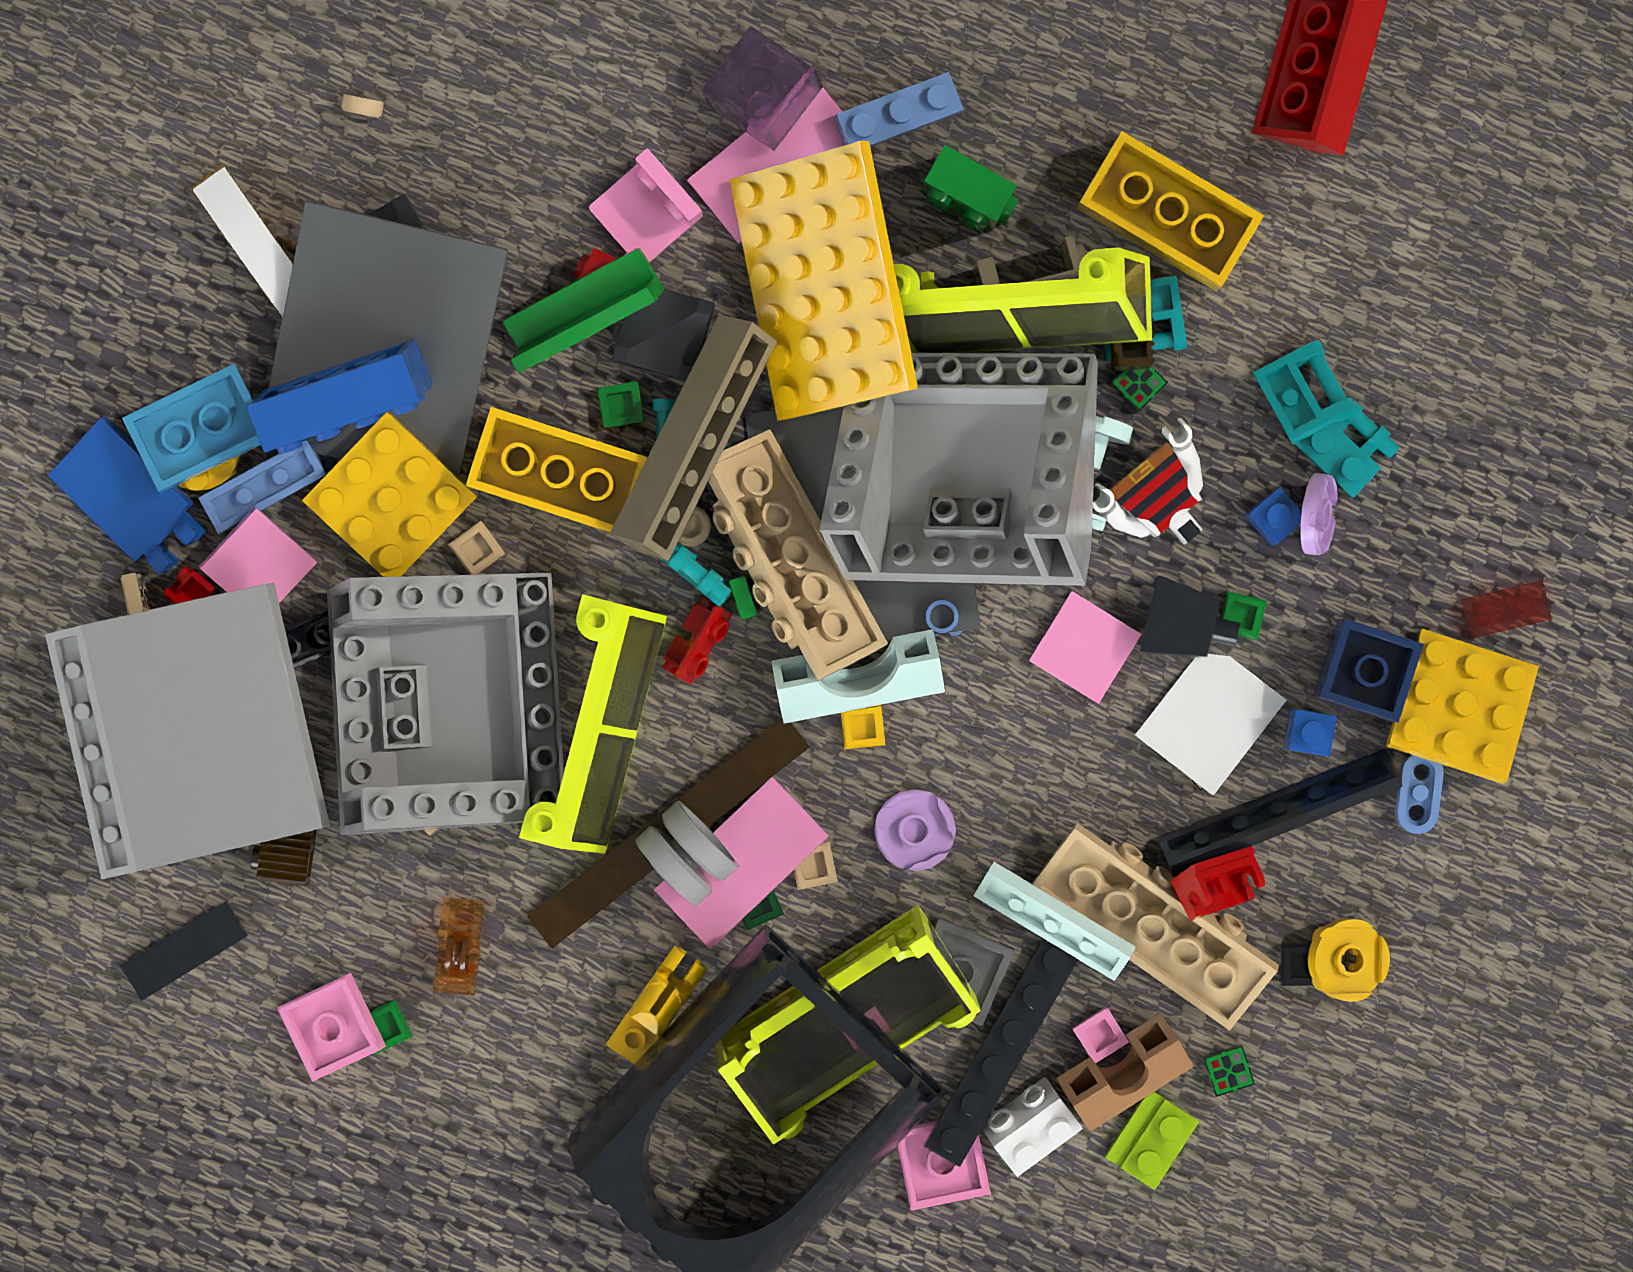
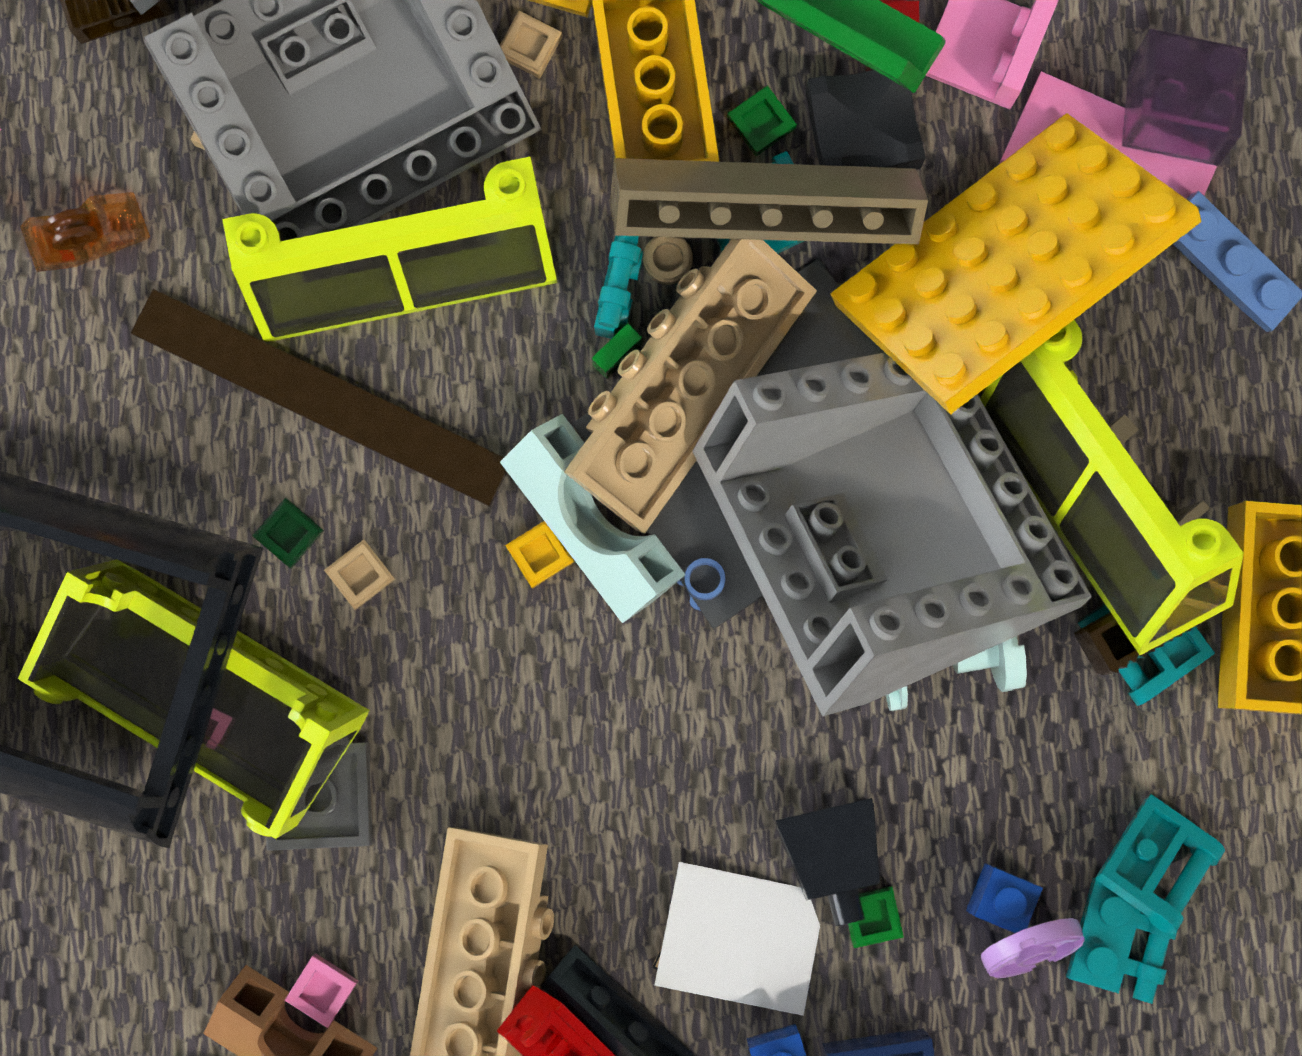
camera: 65 degrees right, 5 degrees down
(655, 1006) = (120, 475): yellow plate -> none
(681, 858) = (298, 420): light grey wheel -> none
(690, 658) = (521, 326): red hinge -> none
(768, 842) = (324, 493): bright pink tile -> none
(903, 819) = (473, 668): lavender tile -> none
(934, 1180) = (95, 883): bright pink tile -> none
(970, 190) = (1193, 374): green brick -> none
(1000, 1052) = (251, 887): black plate -> none
(1031, 1126) = (180, 962): white bracket -> none
(1054, 921) = (424, 875): light aqua plate -> none
(1085, 647) = (749, 757): bright pink tile -> none
(1138, 386) = (1070, 673): tile -> none
(1157, 491) = (965, 751): torso -> none

